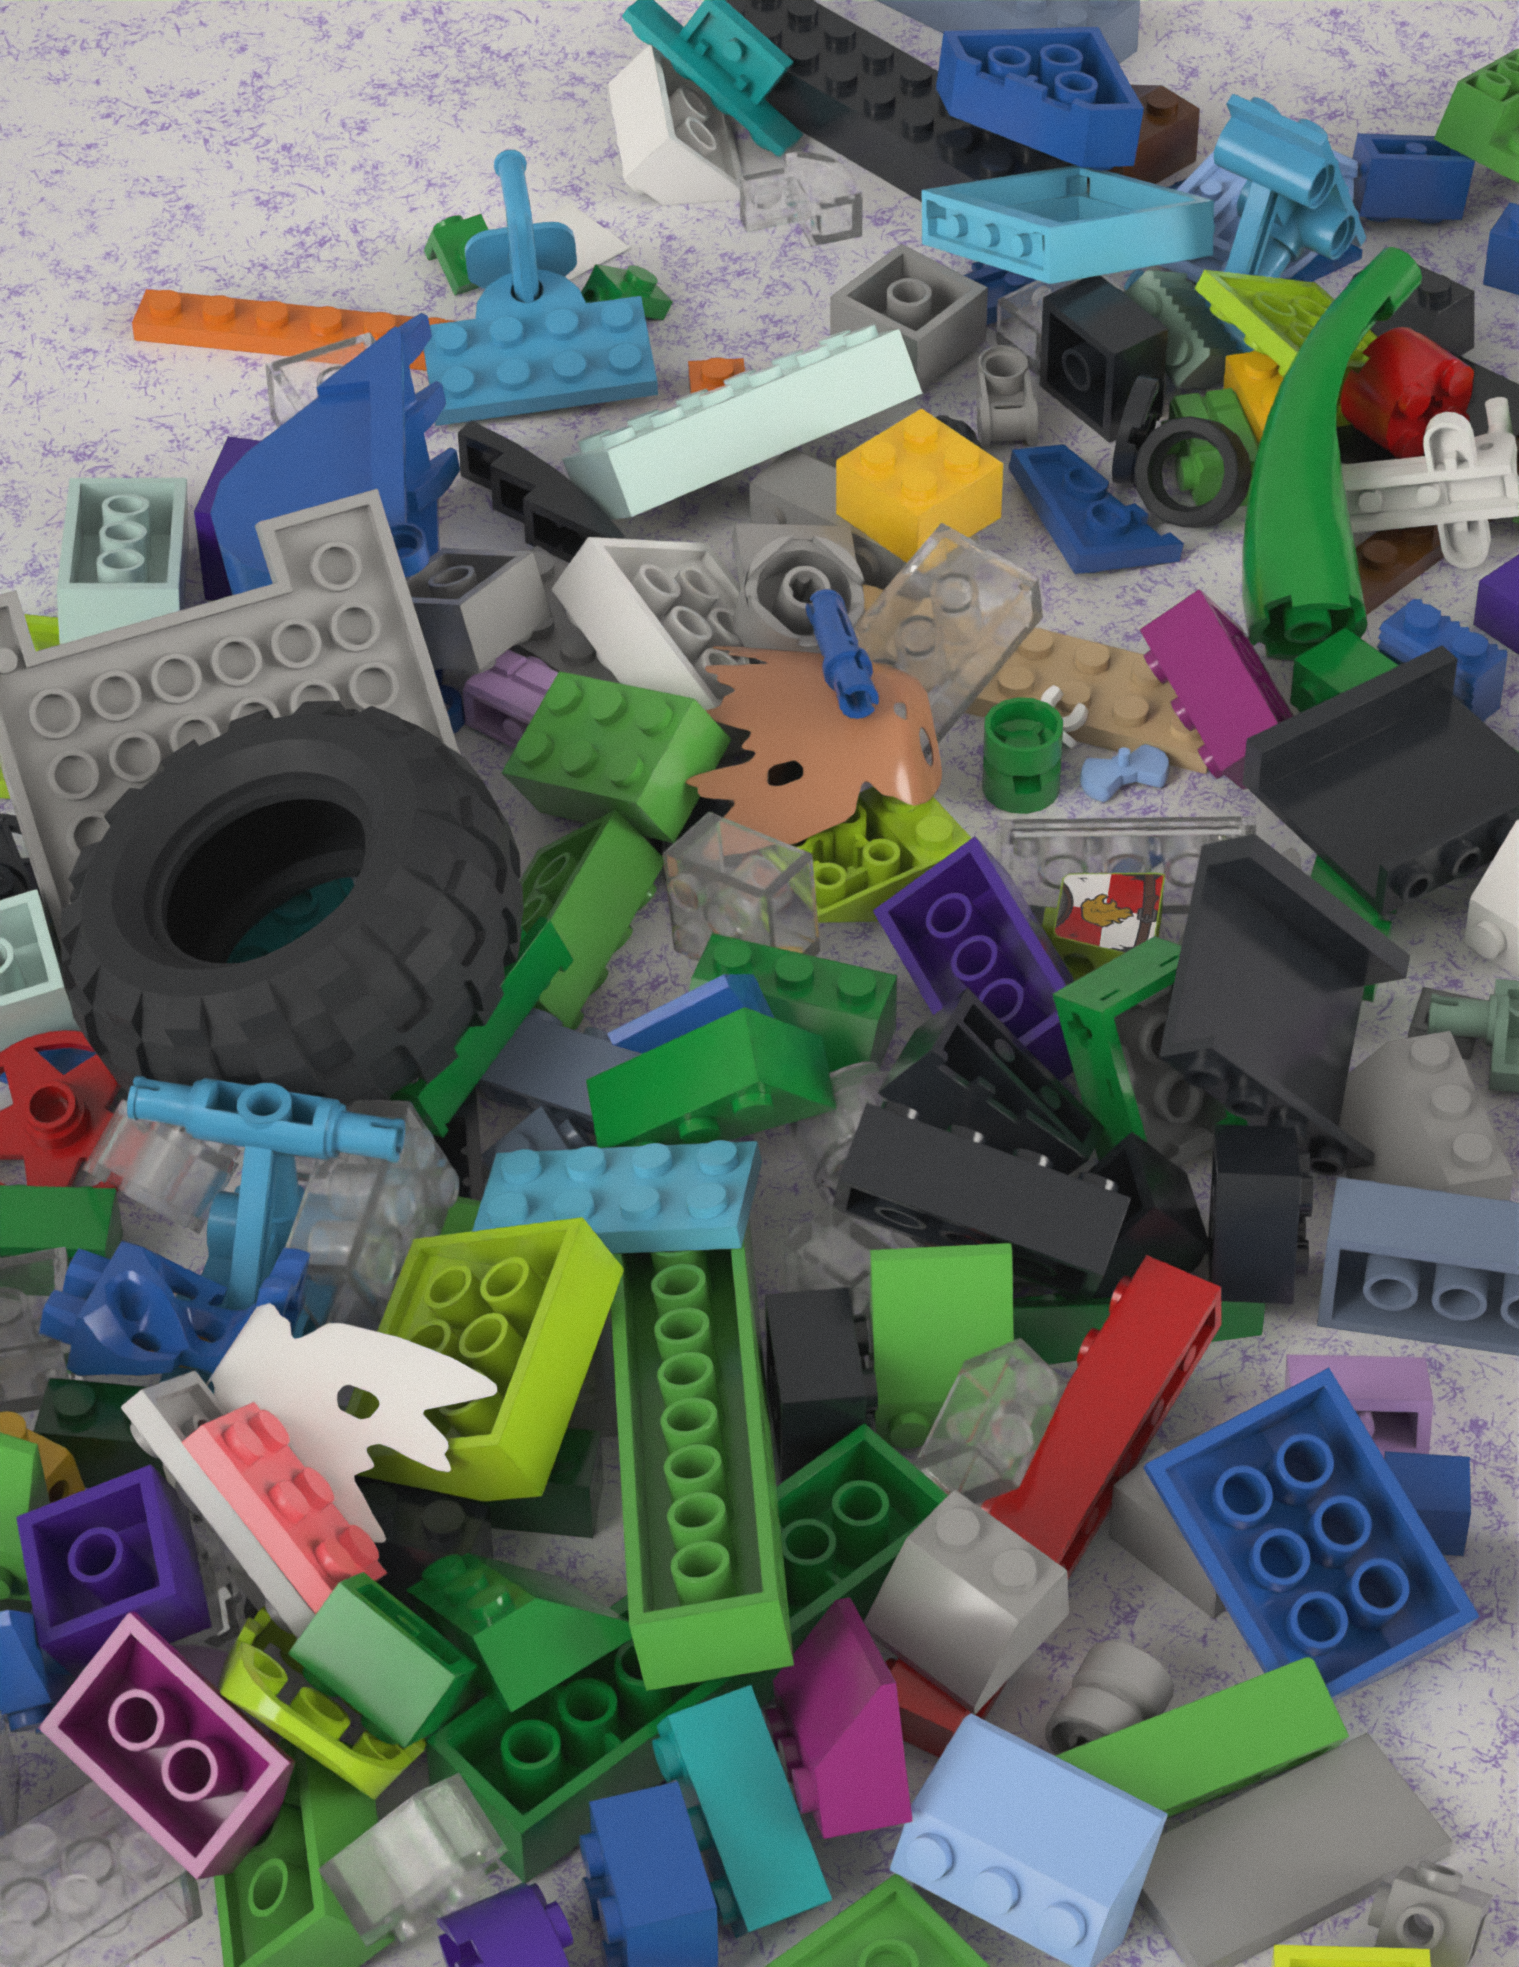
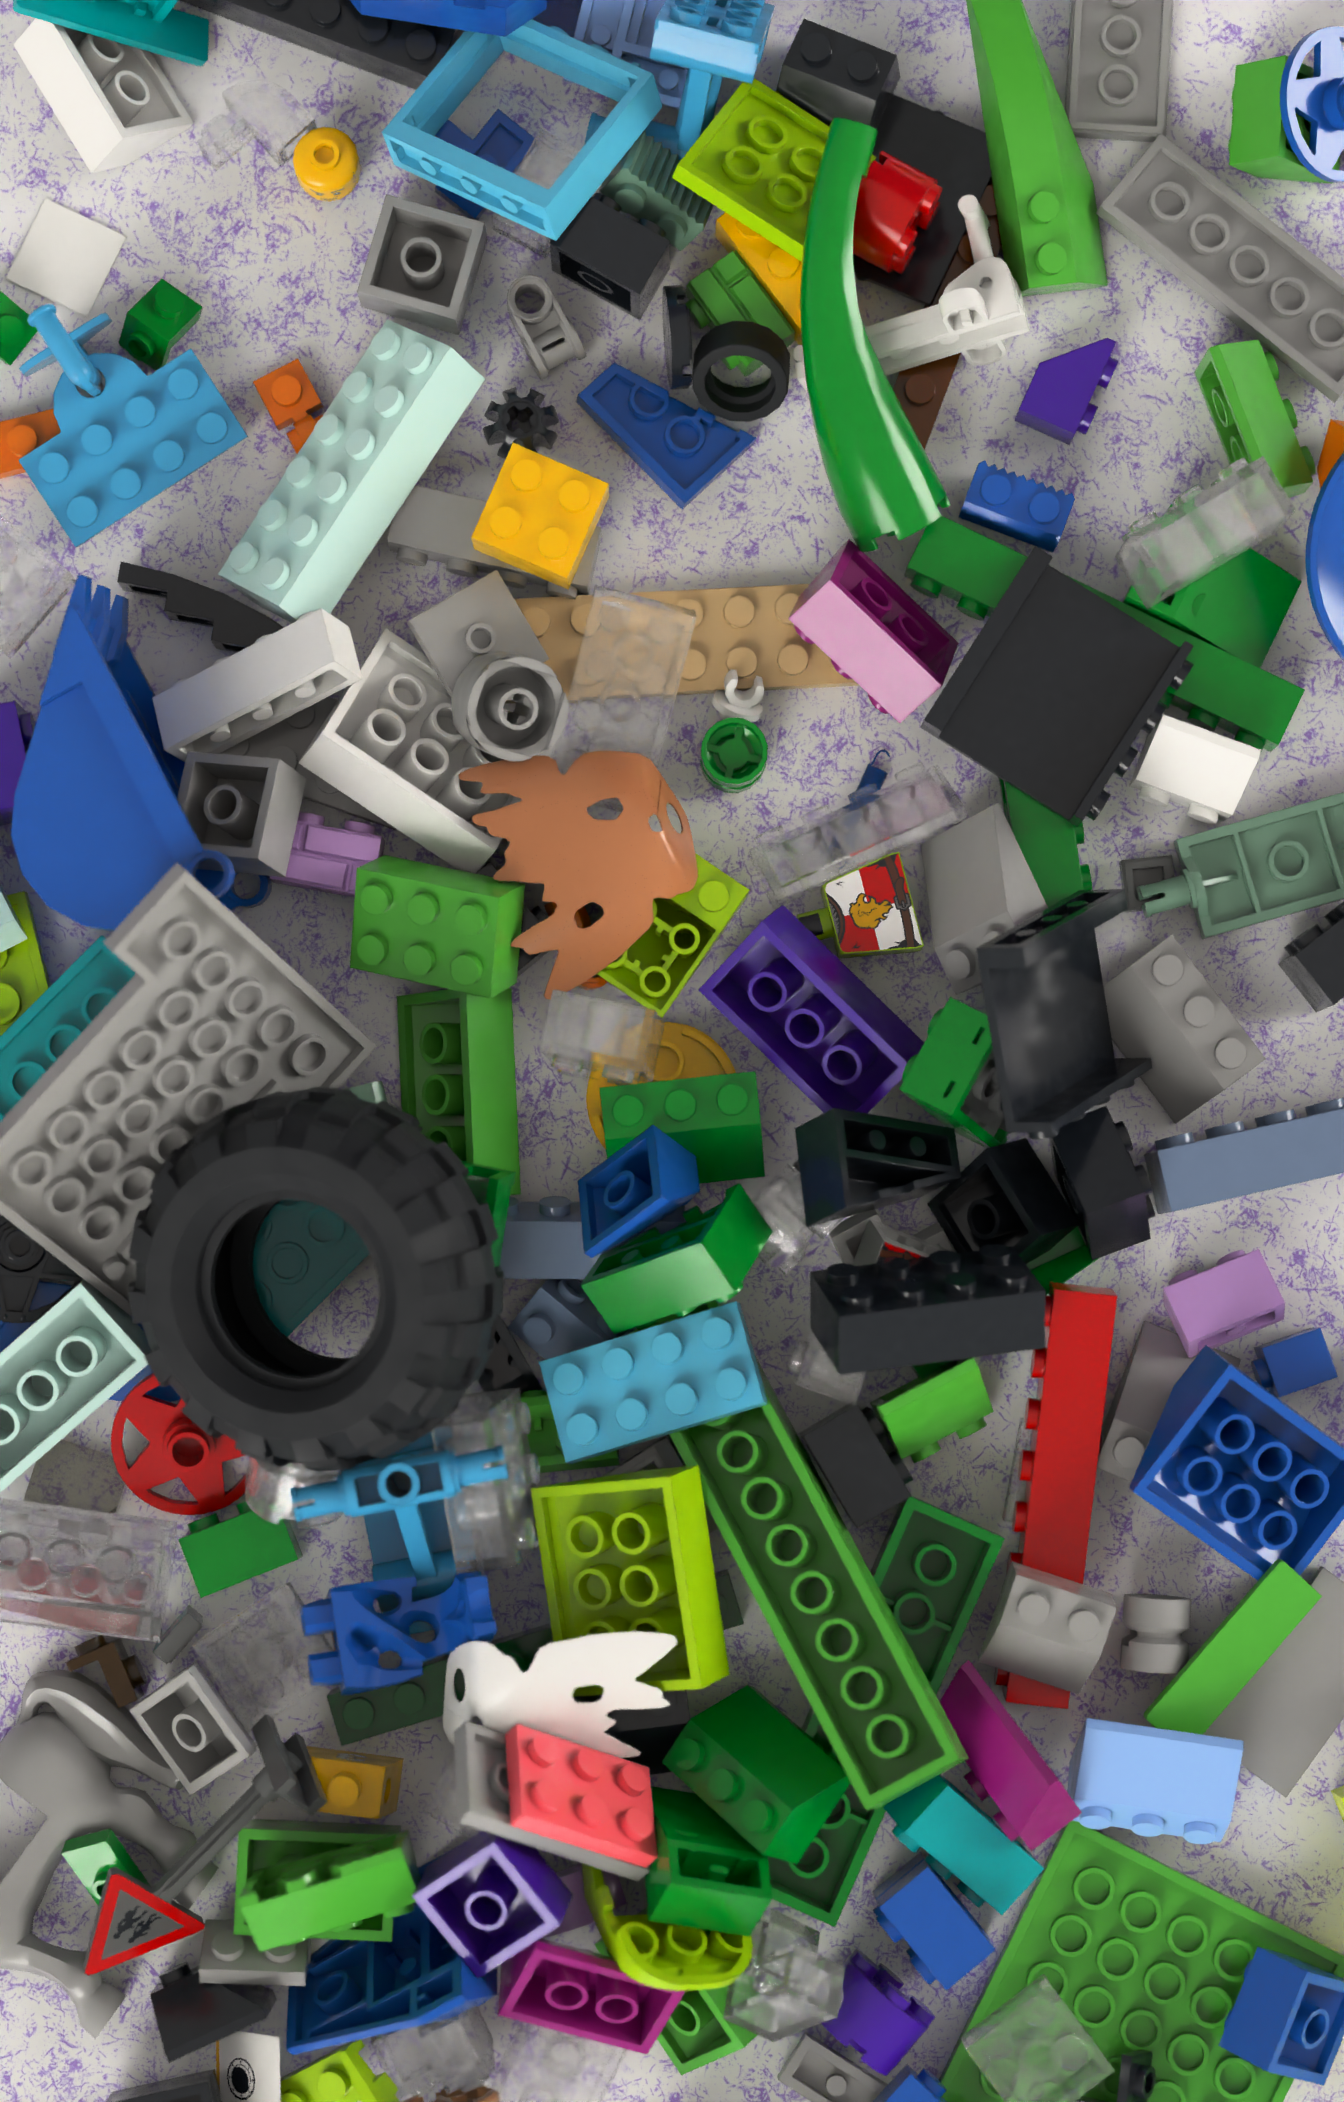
camera: 30 degrees left, 40 degrees up
(559, 520) = (258, 686): none -> white brick
(845, 664) = (598, 806): blue pin -> none
(855, 233) = (326, 164): none -> yellow head
(991, 1422) = (1001, 1471): clear brick -> none
(1105, 776) = (796, 730): light blue piece -> none

